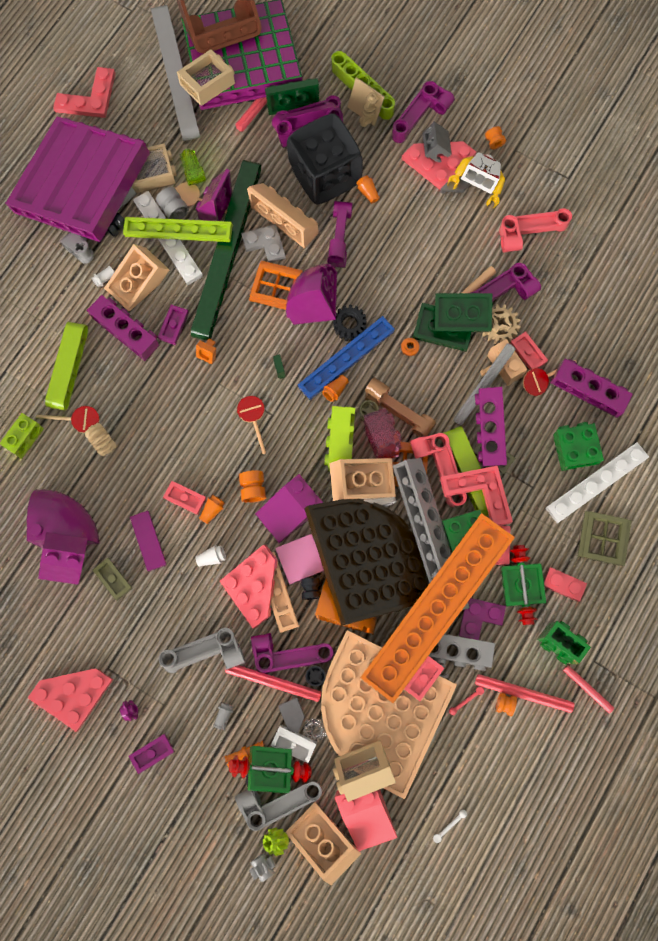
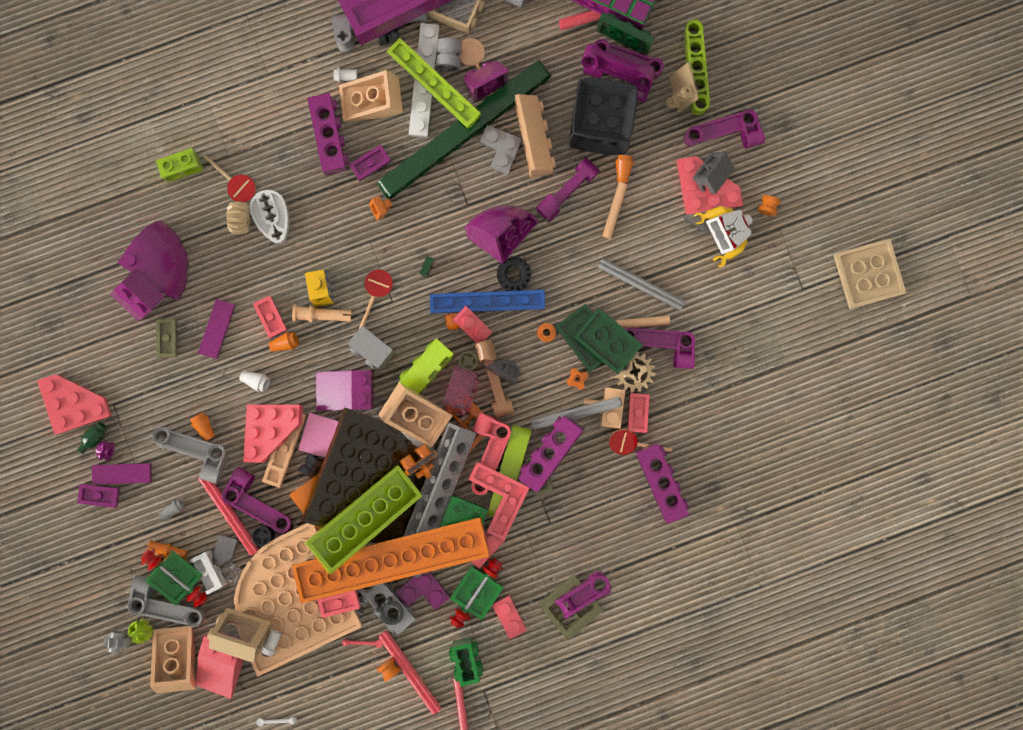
camera: 35 degrees right, 10 degrees up
(66, 366) = (258, 131): lime beam -> none
(109, 708) = (92, 436): none -> dark green plant
(129, 412) = (279, 209): none -> white piece
(157, 720) = (122, 473): none -> magenta tile
(193, 171) = (490, 36): clear neon green piece -> none
(196, 626) = (202, 426): none -> orange cone
(206, 443) = (319, 288): none -> yellow torso
(217, 469) = (311, 314): none -> light nougat pin
(252, 483) = (328, 350): orange wheel -> none
(275, 269) = (493, 182): orange piece -> none
(286, 457) = (372, 348): none -> light grey brick
(349, 382) = (472, 325): none -> coral plate
(386, 223) = (614, 210): none -> light nougat piece
(390, 590) = (363, 519): none -> lime arch
(392, 520) = (425, 456): none -> orange hips
(394, 758) = (271, 643): none -> white pin
(403, 395) = (506, 370): none -> flat silver tile
(452, 259) = (641, 284): none -> light grey axle
(460, 656) = (380, 609): none -> pearl dark grey piece
(467, 365) = (572, 380): none -> orange plate
(527, 224) = (731, 305): coral piece -> none
(578, 446) = (610, 520): green brick -> none
(597, 482) = (603, 560): white plate -> none
(606, 131) = (869, 273): none -> tan plate
(607, 517) = (583, 594): none -> magenta piece

